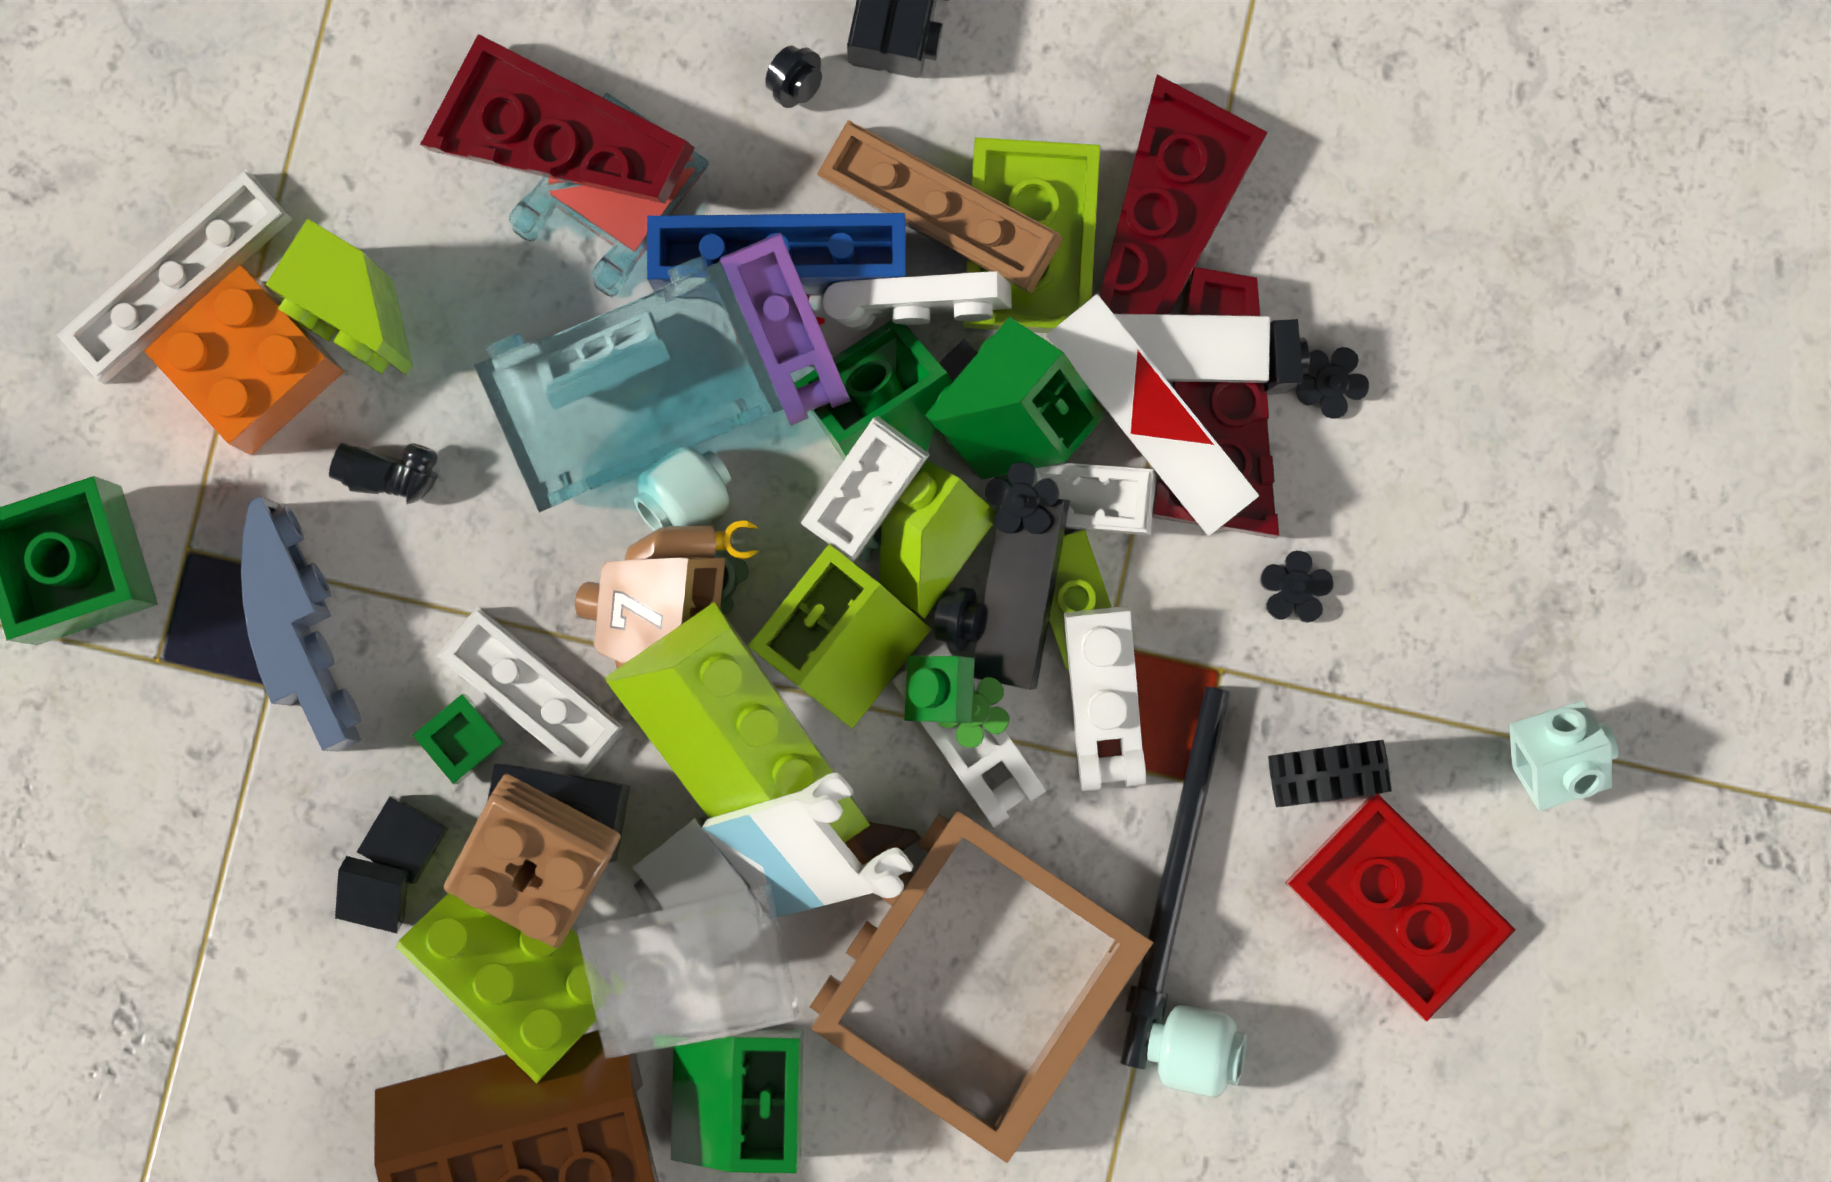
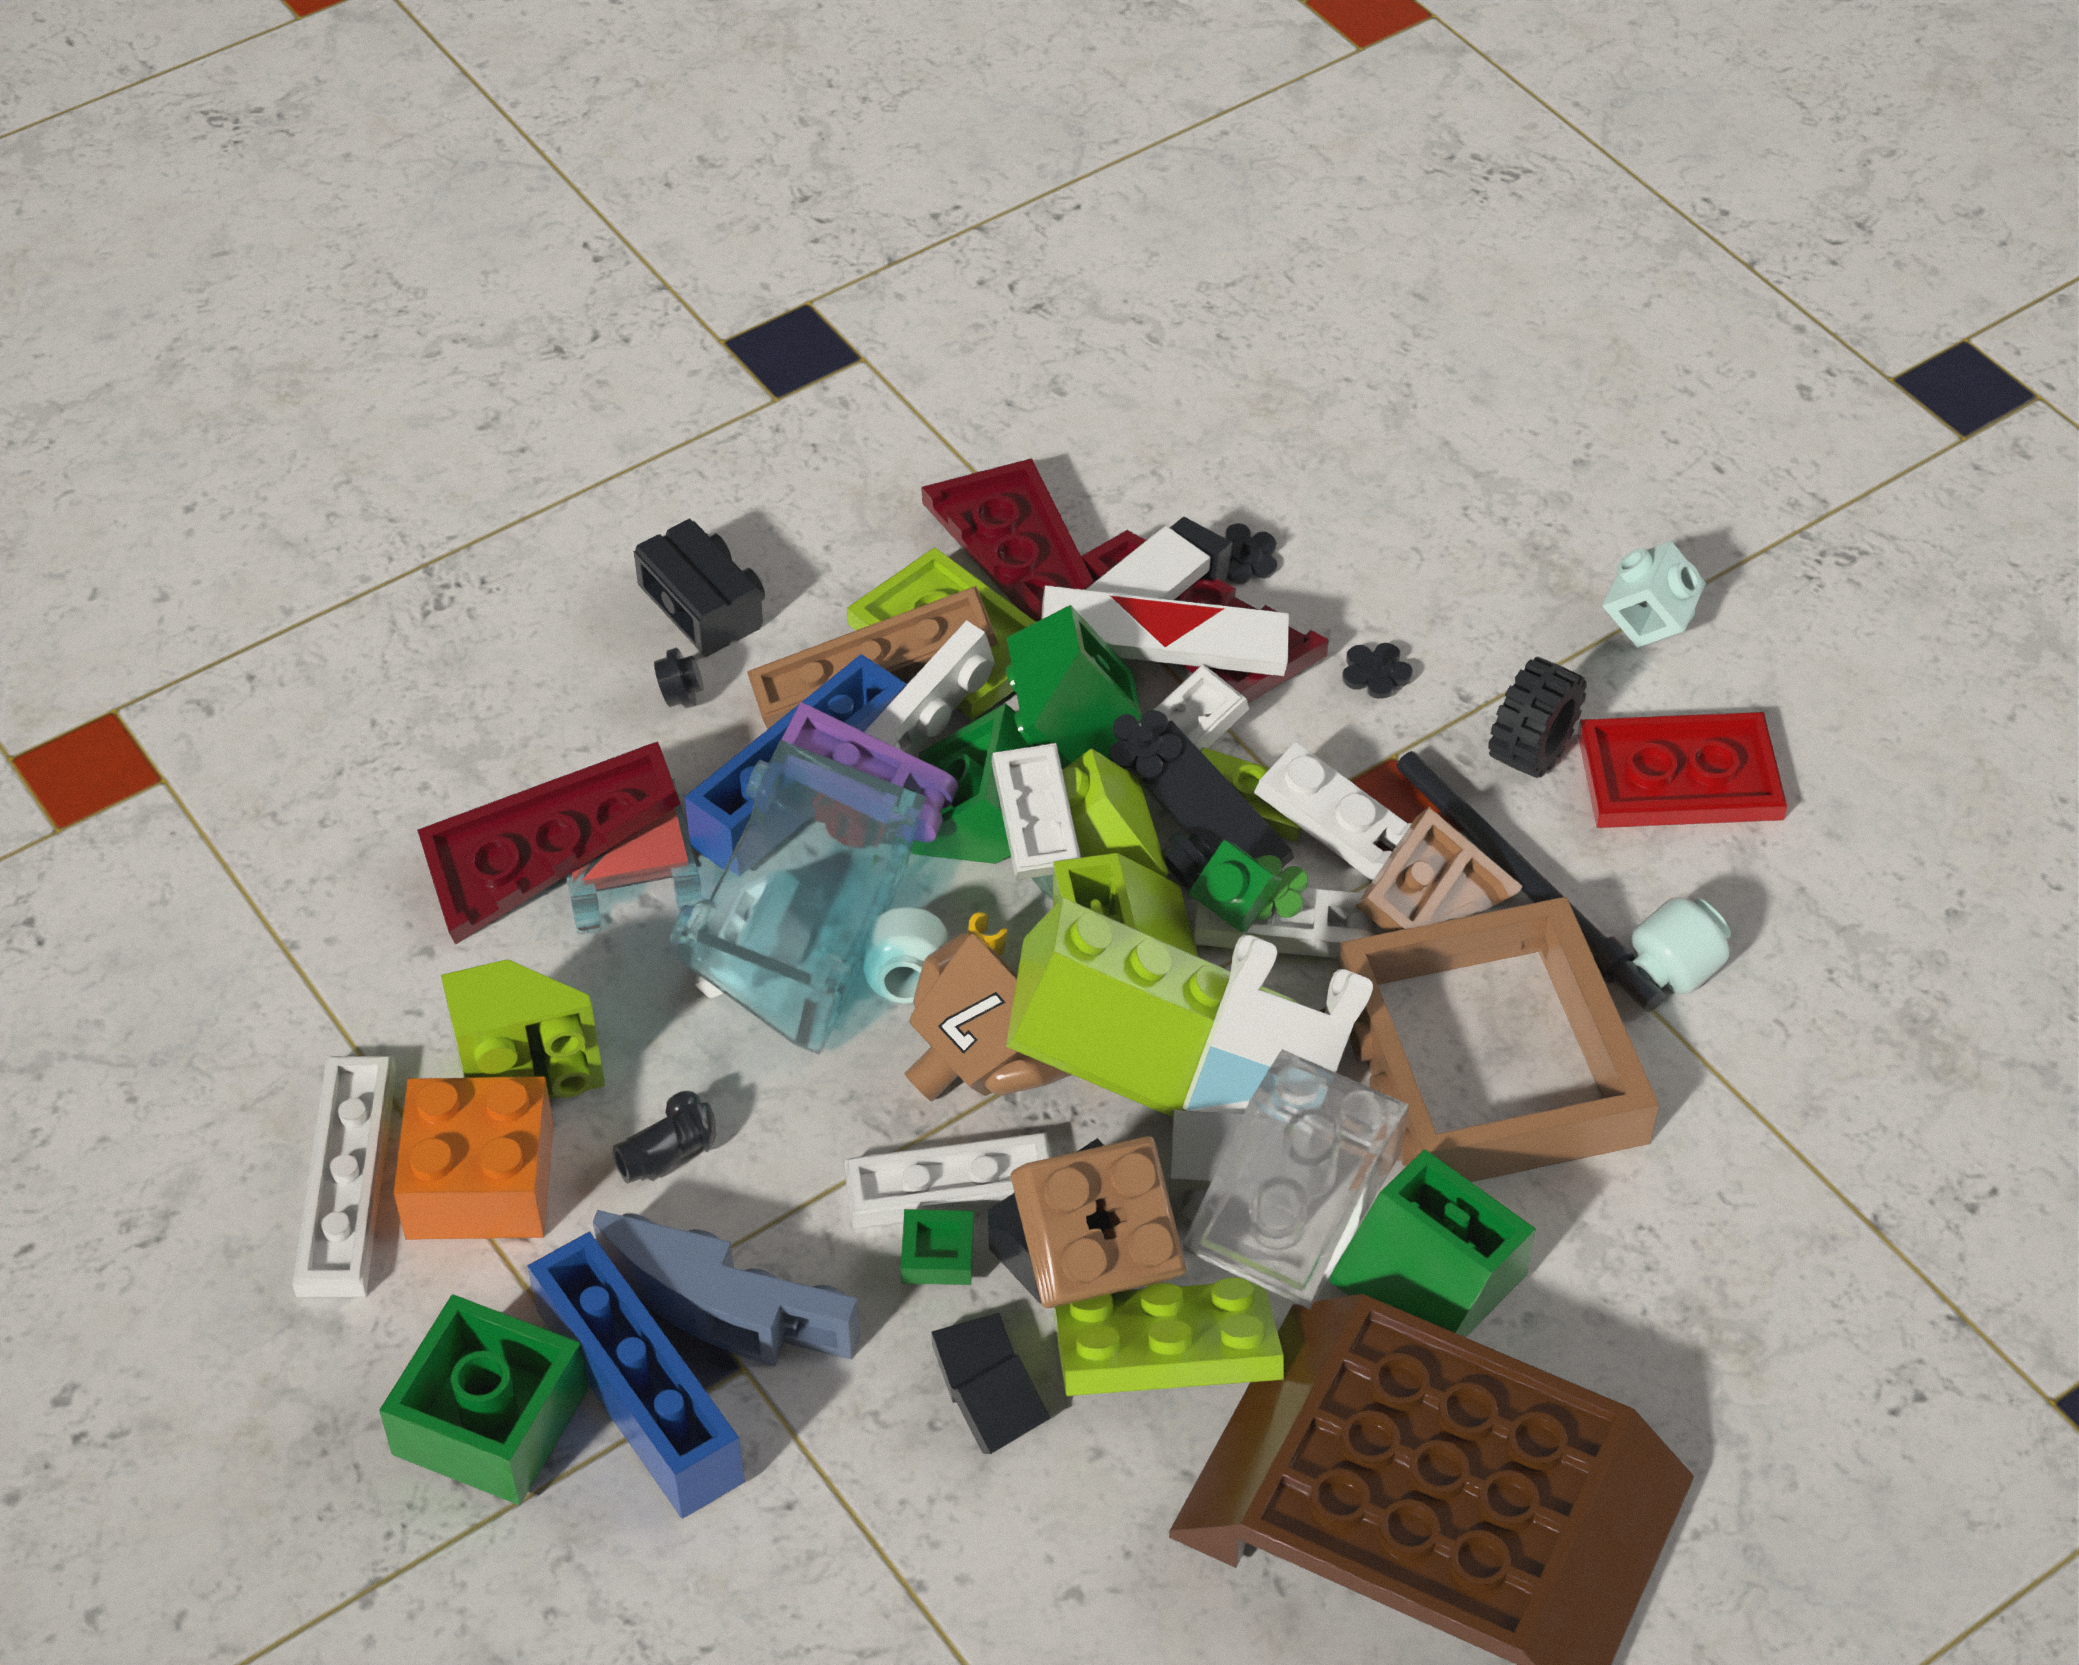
camera: 50 degrees left, 35 degrees down
(167, 641) = (638, 1375): none -> blue brick
(1089, 821) = (1434, 879): none -> medium nougat wing

